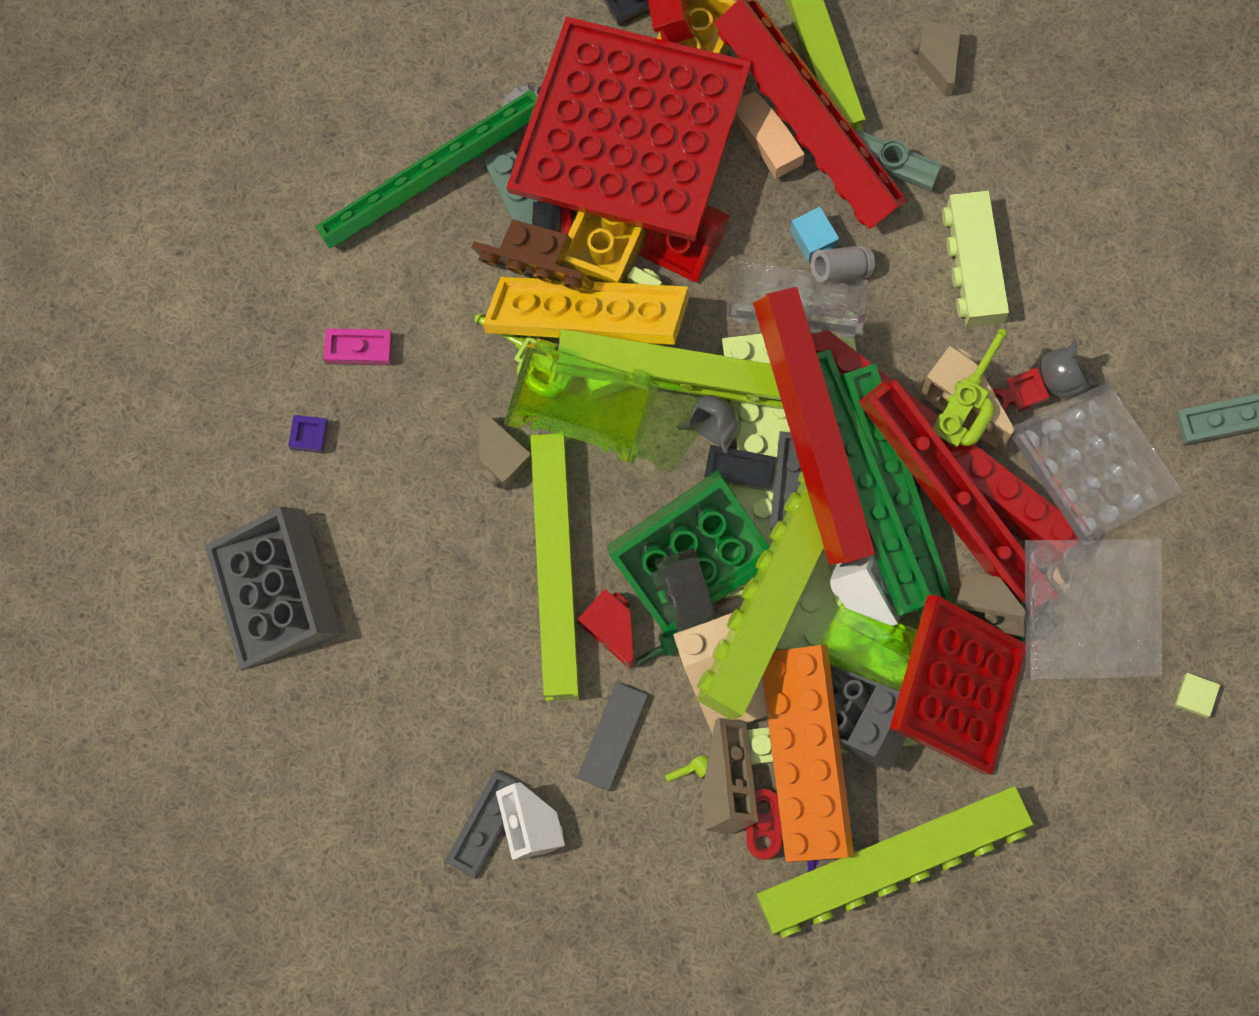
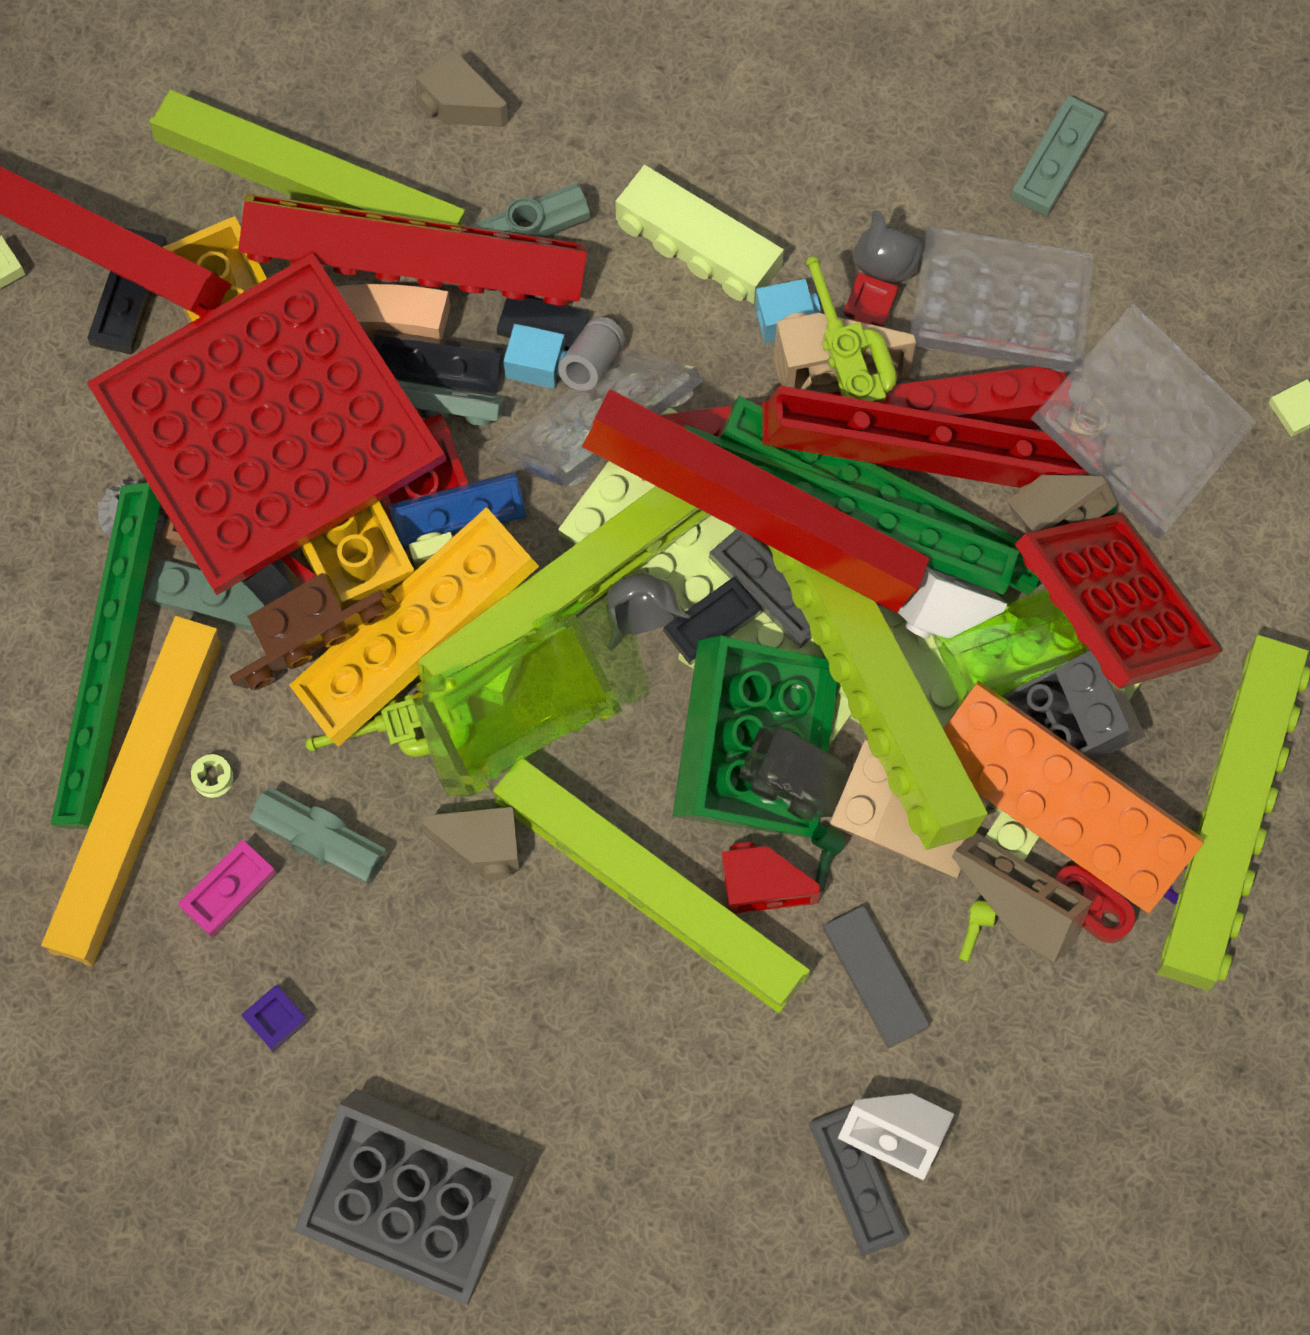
camera: 55 degrees left, 5 degrees down
(368, 250) = (132, 792): none -> yellow tile
(416, 292) = (224, 780): none -> yellowish green bush
(428, 367) = (318, 835): none -> sand green piece
(677, 270) = (456, 507): none -> blue tile
(742, 211) = (435, 400): none -> sand green plate
(761, 186) = (440, 361): none -> black plate
(842, 219) = (542, 316): none -> black tile
(975, 341) = (781, 300): none -> medium azure brick

